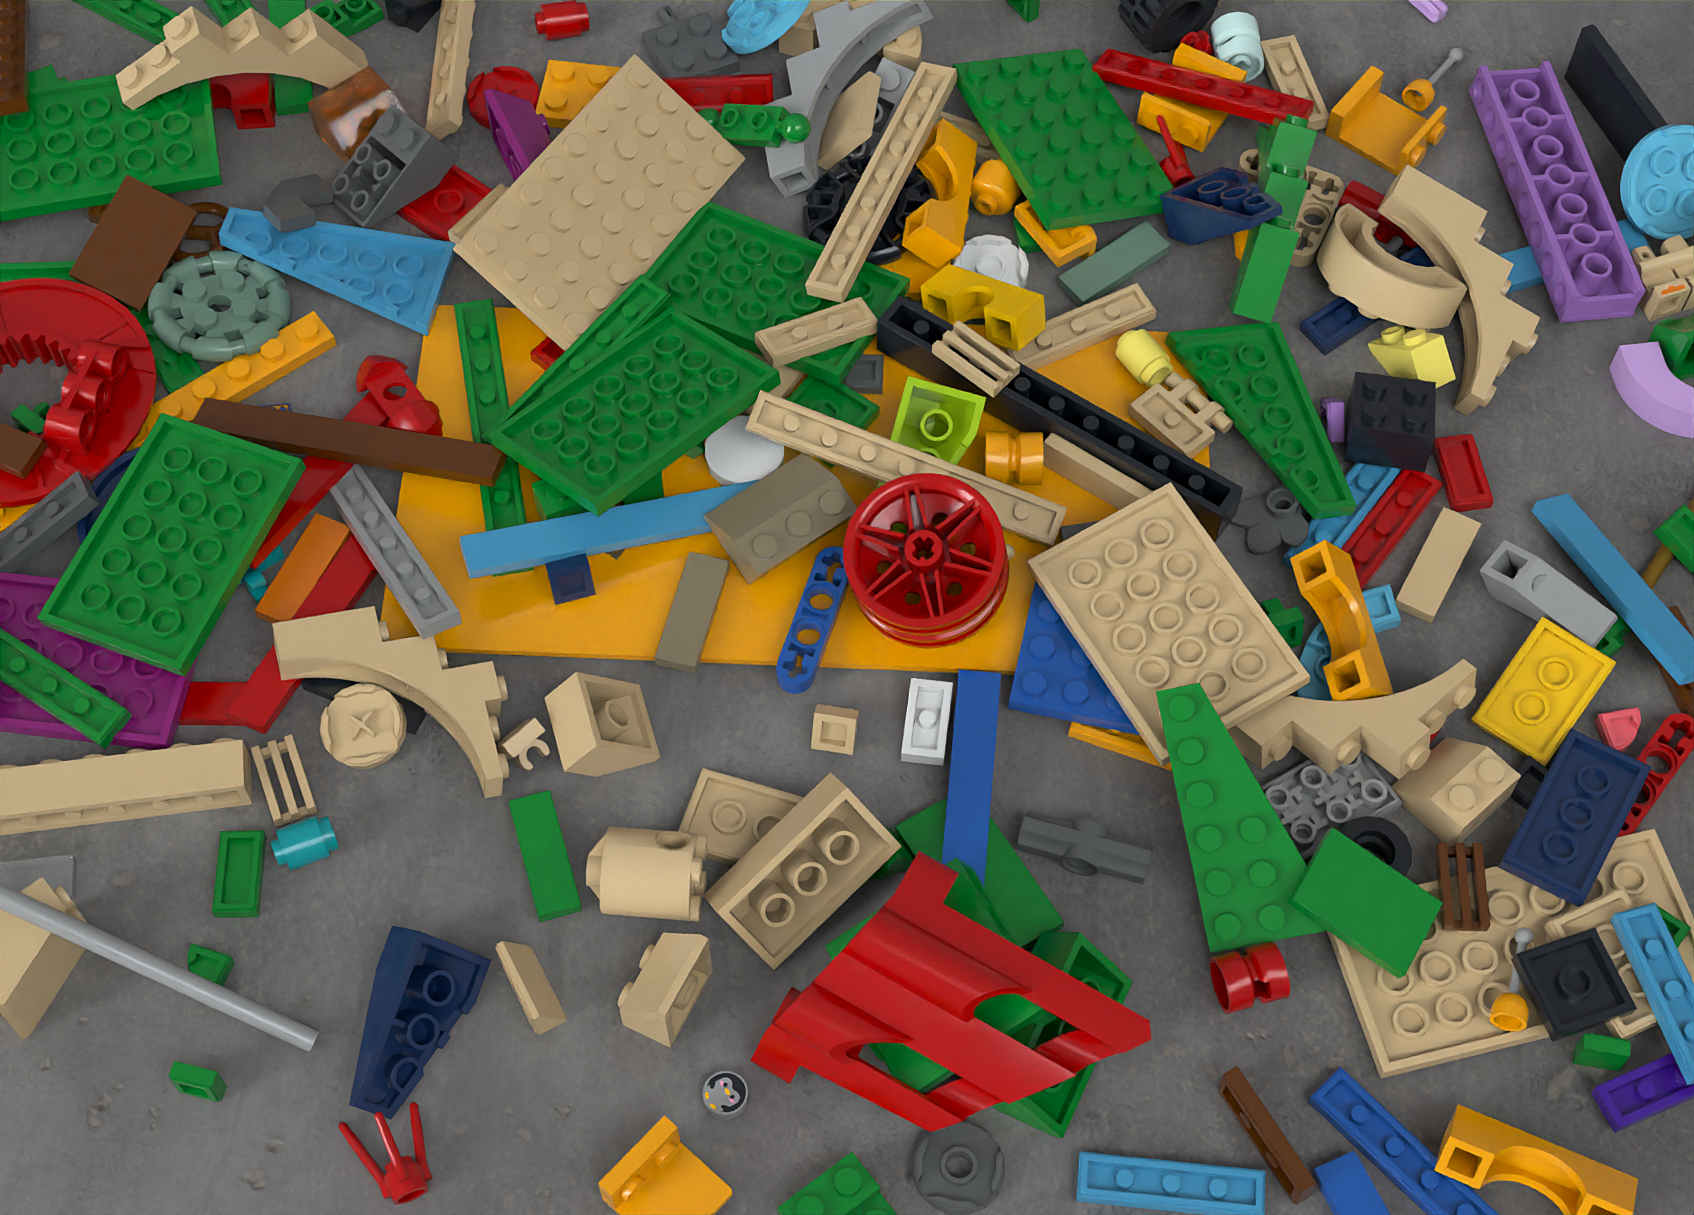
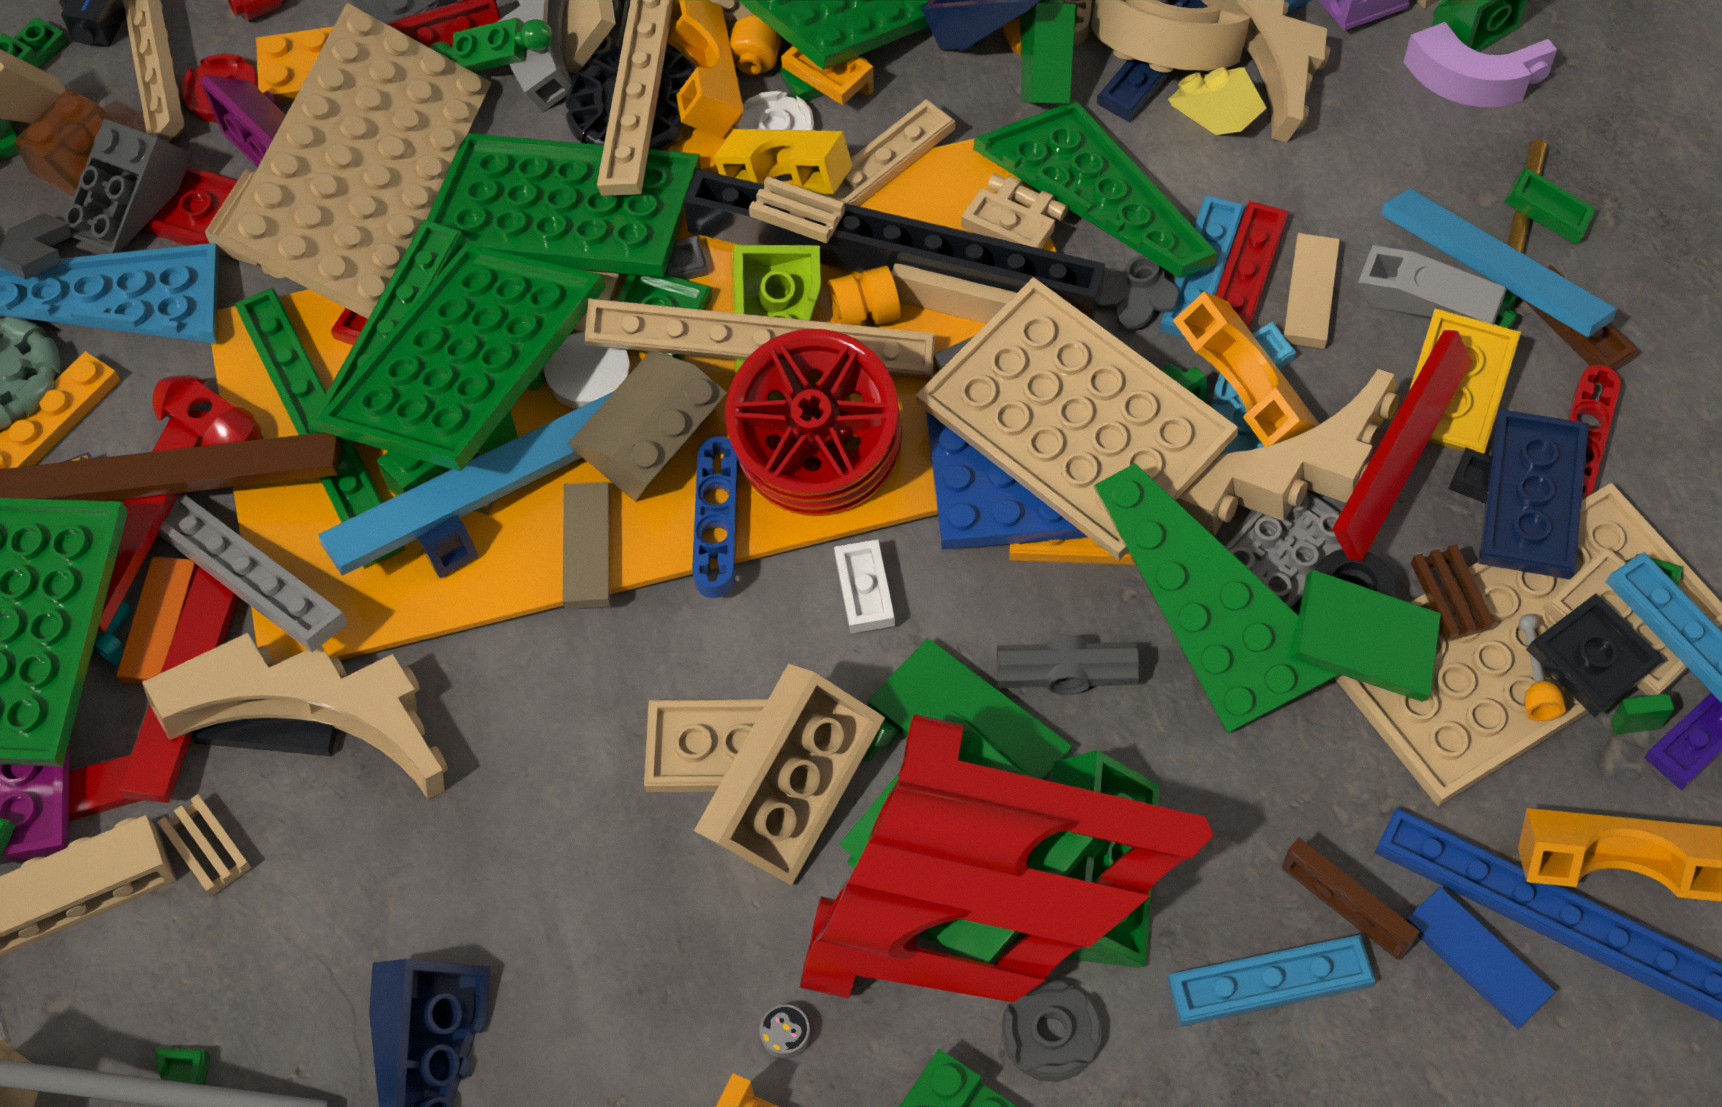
camera: 15 degrees left, 0 degrees up
(239, 874) = (186, 959): green tile -> none
(304, 842) = (248, 903): teal brick -> none
(363, 726) = (273, 763): tan tile -> none
(520, 740) = (448, 726): tan tile -> none
(530, 986) = (541, 981): tan slope -> none
(545, 856) = (512, 840): green tile -> none
(600, 725) = (527, 688): tan slope -> none
(649, 873) = (630, 824): tan cylinder -> none
(666, 986) = (686, 936): tan slope -> none
(816, 332) = (624, 229): tan tile -> none
(834, 729) = (773, 621): tan tile -> none
(972, 769) = (926, 619): blue tile -> none
(1114, 264) = (895, 89): sand green tile -> none
(1143, 357) = (958, 168): light yellow brick -> none
(1256, 975) = (1281, 742): red wheel -> none
(1334, 411) = (1162, 172): medium lavender tile -> none
(1390, 421) = (1219, 165): black brick -> none
(1456, 788) = (1423, 503): tan slope -> none
(1462, 473) = (1302, 196): red tile -> none
(1462, 736) = (1402, 446): none -> red tile
(1618, 727) = (1538, 396): coral tile -> none

